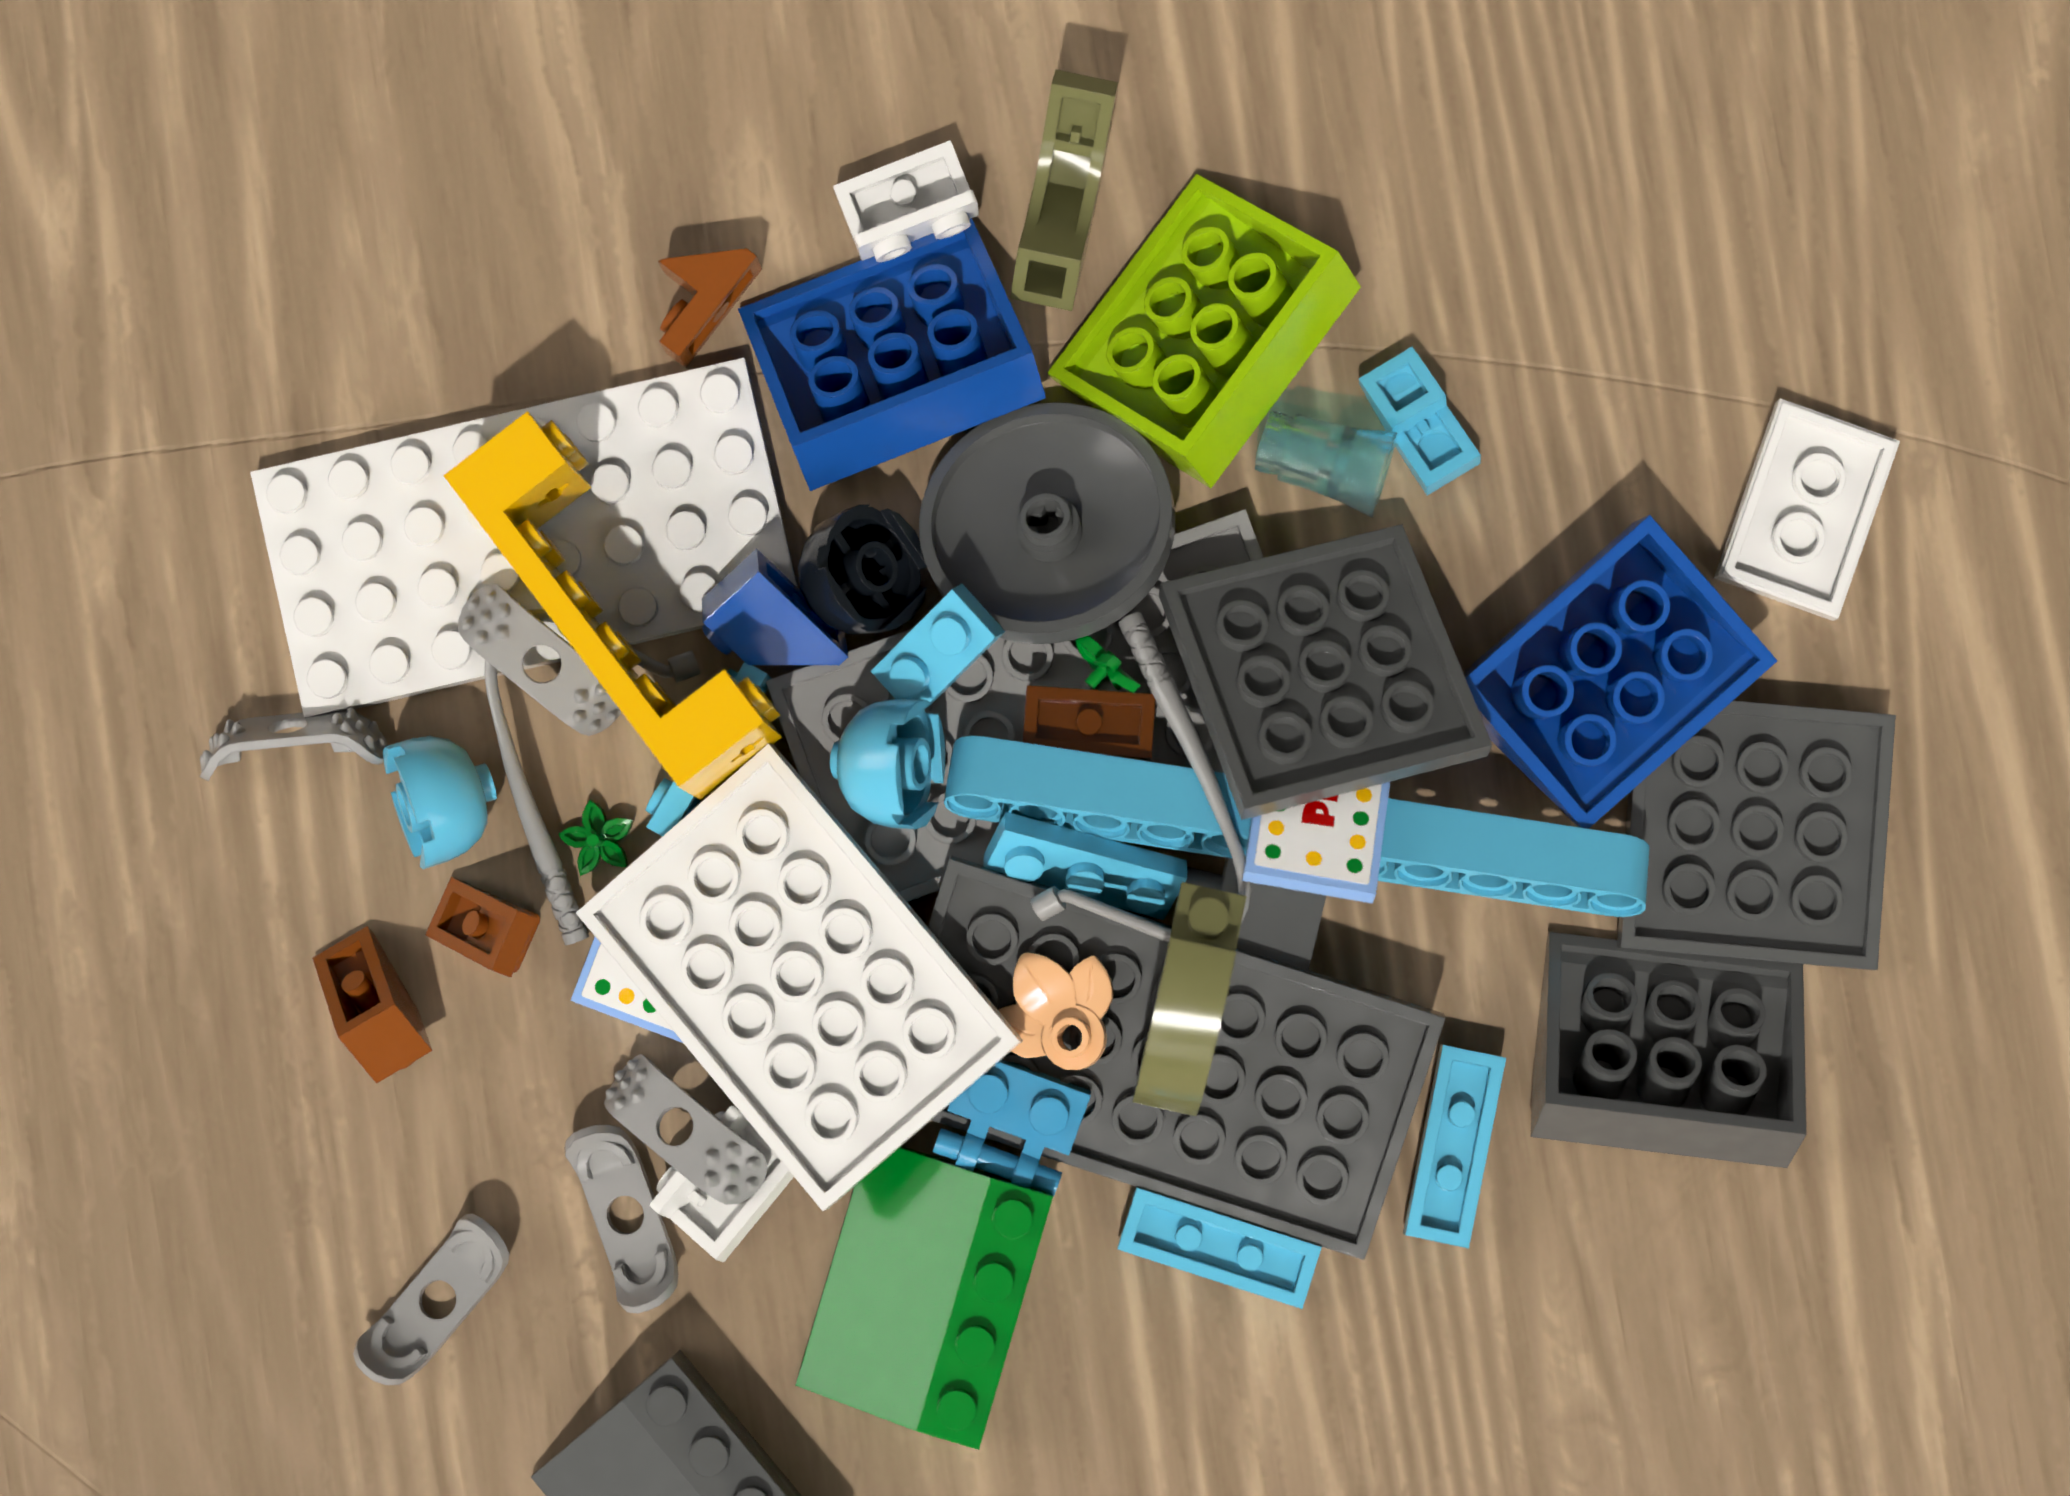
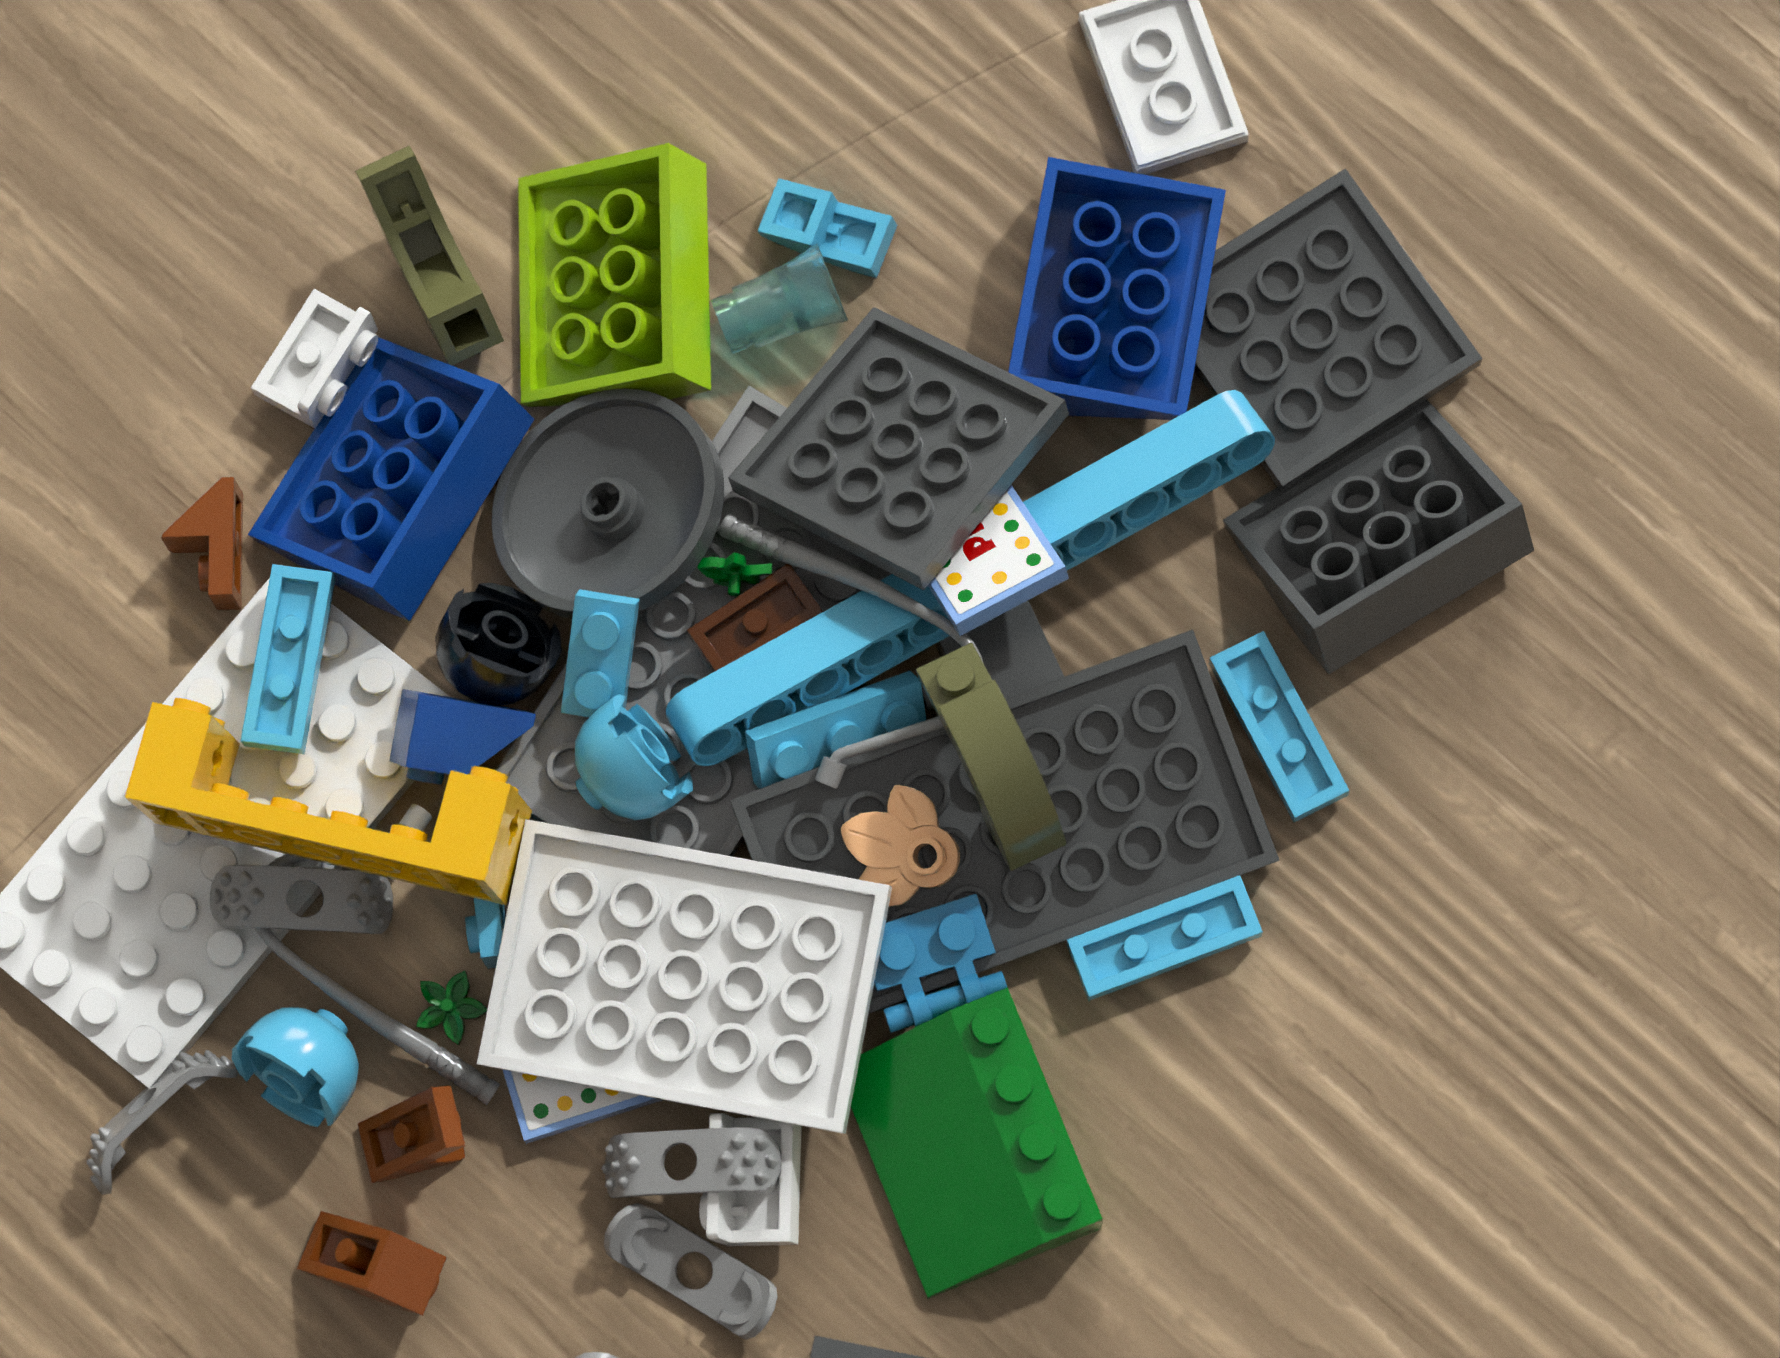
camera: 35 degrees left, 10 degrees down
(682, 448) = (288, 659): none -> medium azure plate

